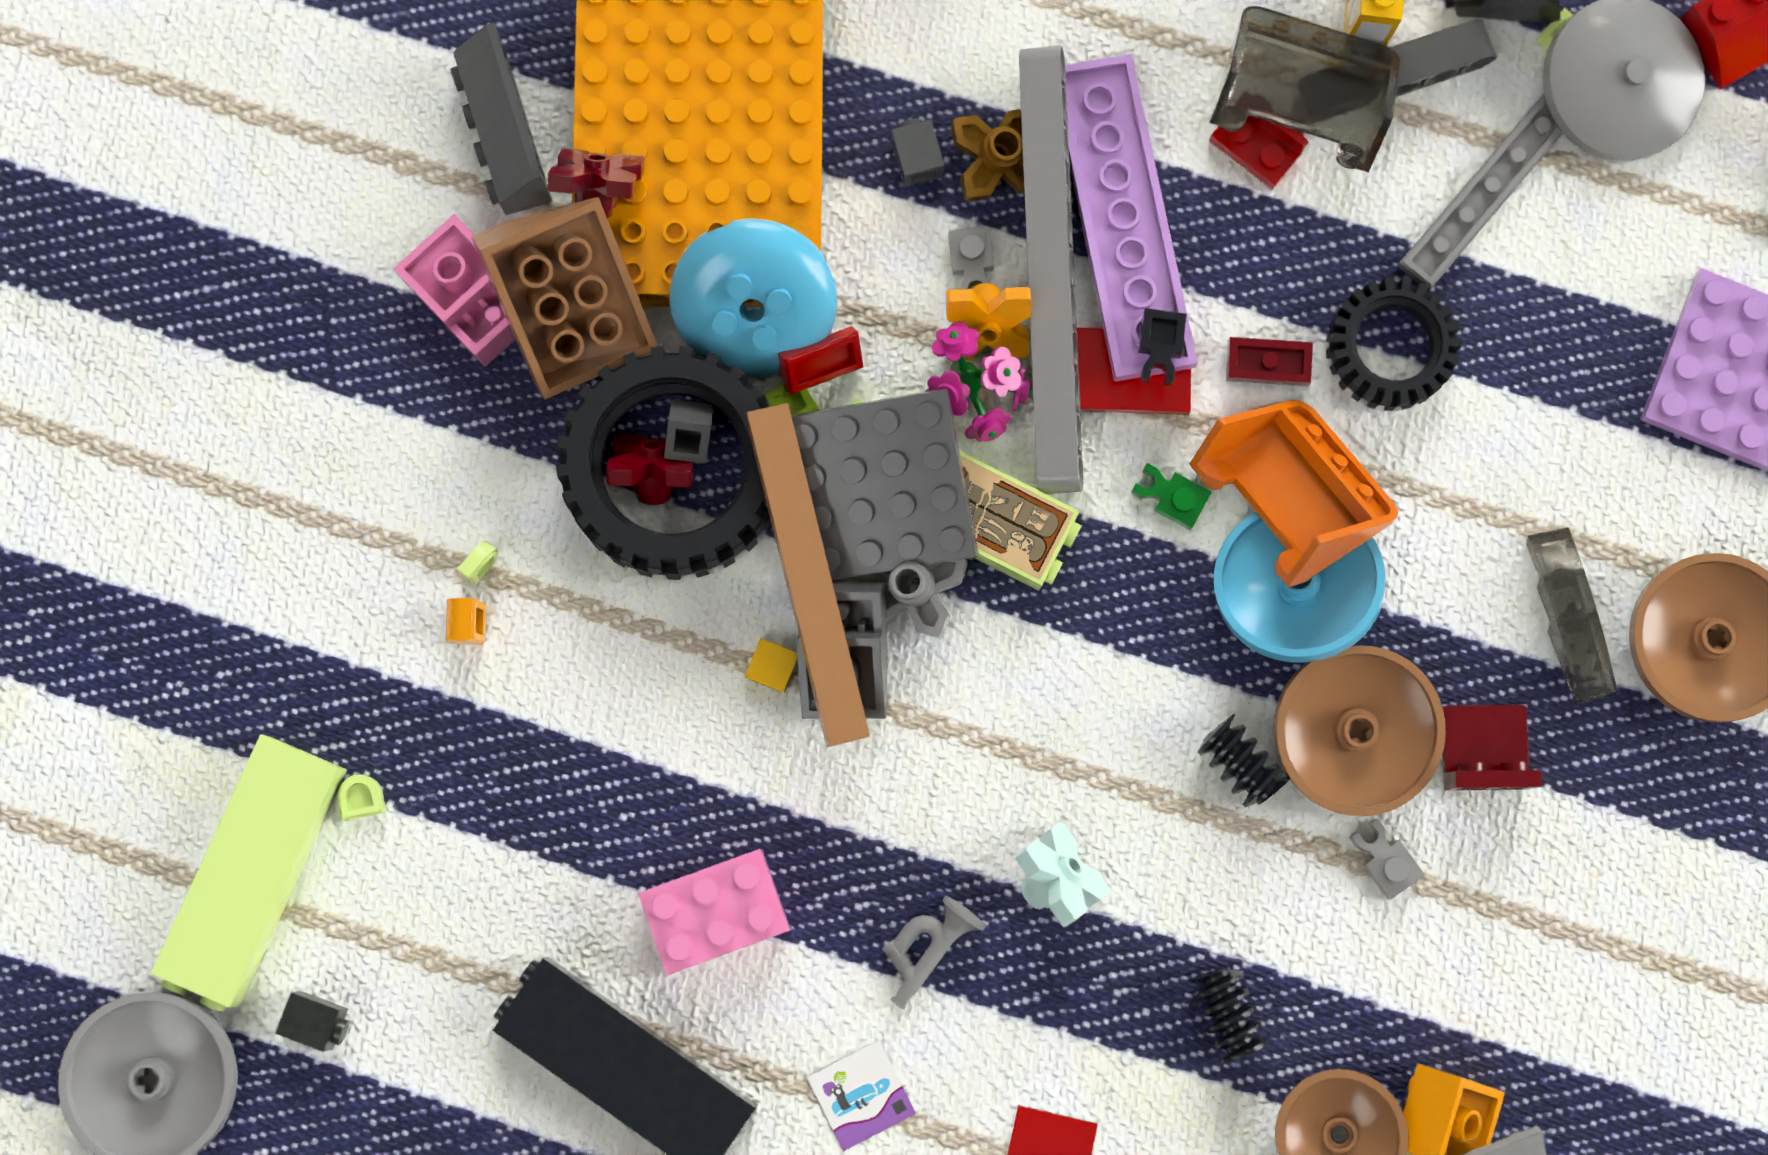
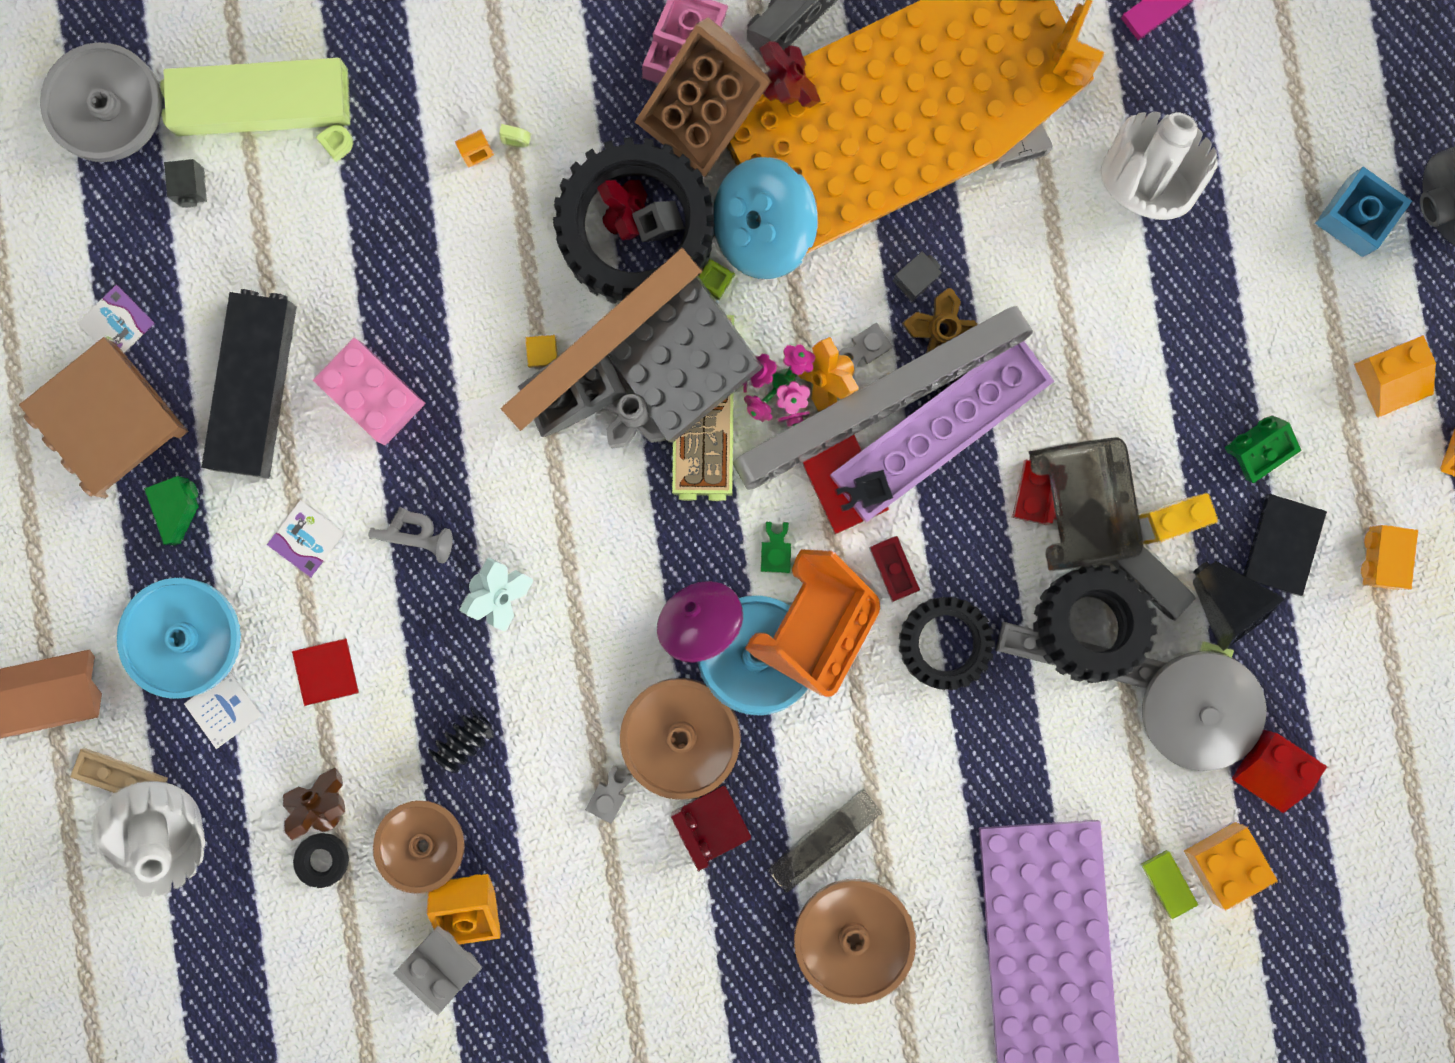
camera: 70 degrees right, 5 degrees up
(821, 361) = (748, 283): red tile -> none
(1242, 633) = (705, 630): none -> magenta dish
(1242, 763) = (623, 674): black piece -> none
(1470, 104) = (1127, 604): none -> black tyre

